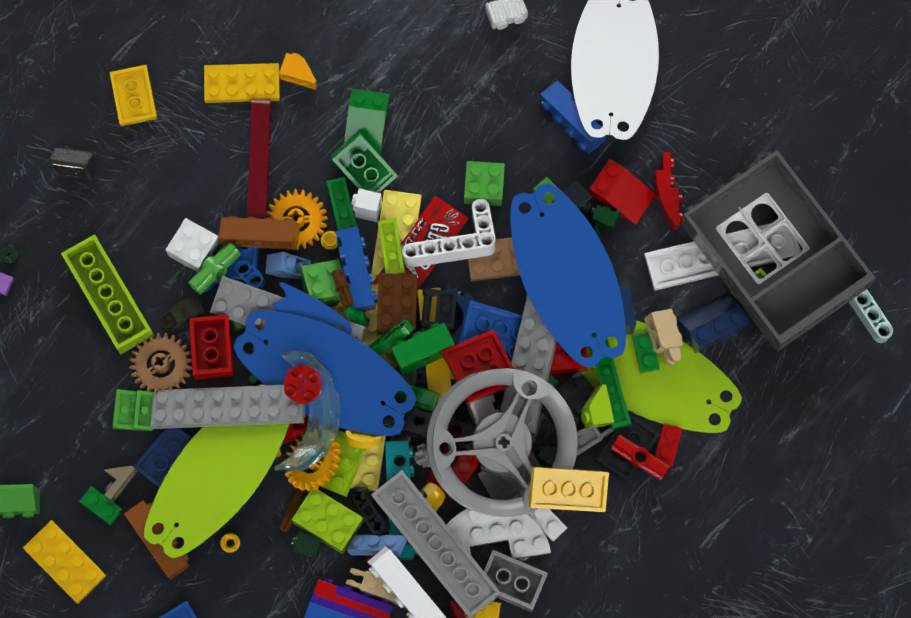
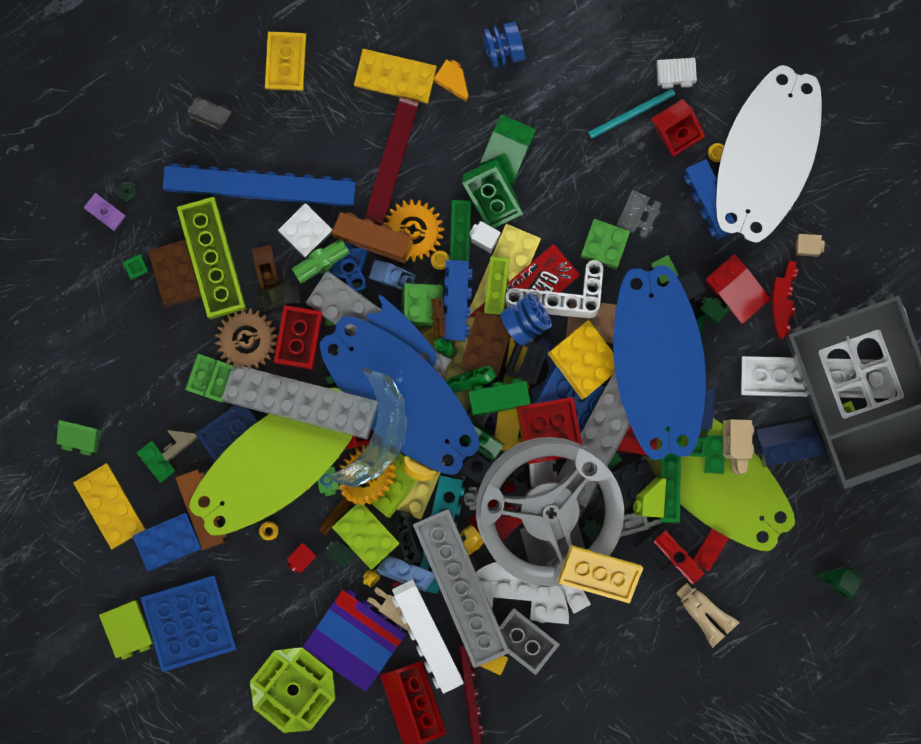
camera: 20 degrees right, 10 degrees up
(35, 323) = (135, 267): none -> green plate
(75, 319) = (175, 273): none -> reddish brown brick
(131, 580) = (167, 542): none -> blue brick
(136, 216) = (259, 186): none -> blue brick
(162, 289) = (265, 267): none -> reddish brown slope
(269, 560) = (300, 558): none -> red brick
(276, 479) = (326, 485): none -> bright green brick
(311, 387) = (367, 399): red plate -> none
(335, 26) = (504, 44): none -> blue wheel
(344, 561) = (371, 578): none -> yellow plate
(430, 263) = (526, 319): none -> blue wheel
(477, 58) = (632, 113): none -> teal piece
(494, 293) = (584, 359): none -> yellow plate
(502, 148) = (633, 211): none -> clear plate
(522, 60) = (678, 127): none -> red slope
(564, 74) = (715, 152): none -> yellow plate
(629, 351) = (700, 449): none -> green plate
(673, 501) = (697, 605): none -> tan piece
(677, 135) = (809, 245): none -> tan brick
(803, 439) = (842, 581): none -> dark green slope

